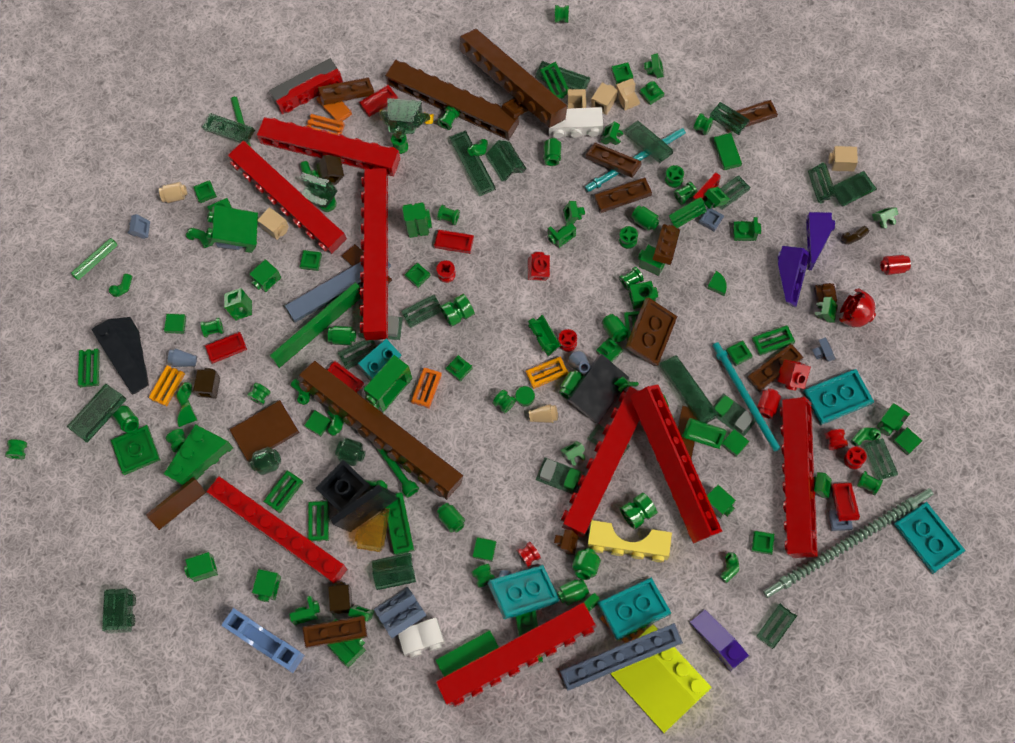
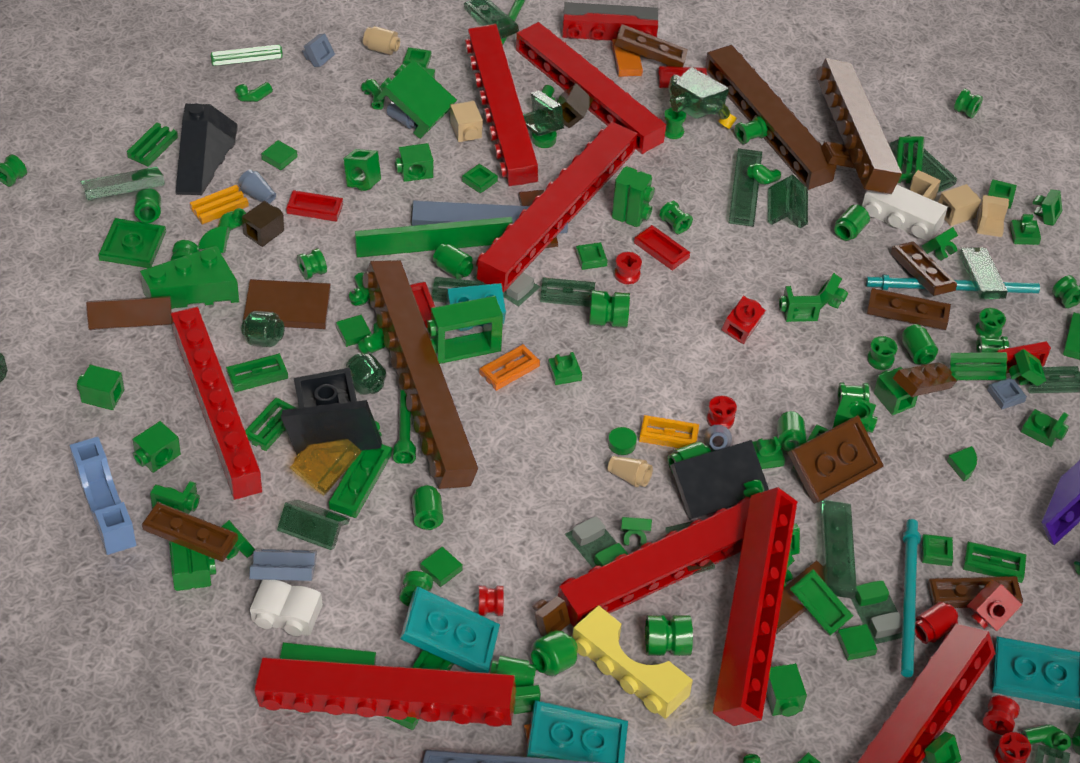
camera: 25 degrees right, 20 degrees down
(212, 327) = (315, 177): green bush -> none
(326, 124) = (605, 67): orange tile -> none
(340, 598) = (227, 505): dark brown brick -> none
(504, 401) = (591, 428): green wheel -> none
(544, 335) = (695, 391): green hinge -> none
(824, 350) = (1057, 608): sand blue tile -> none

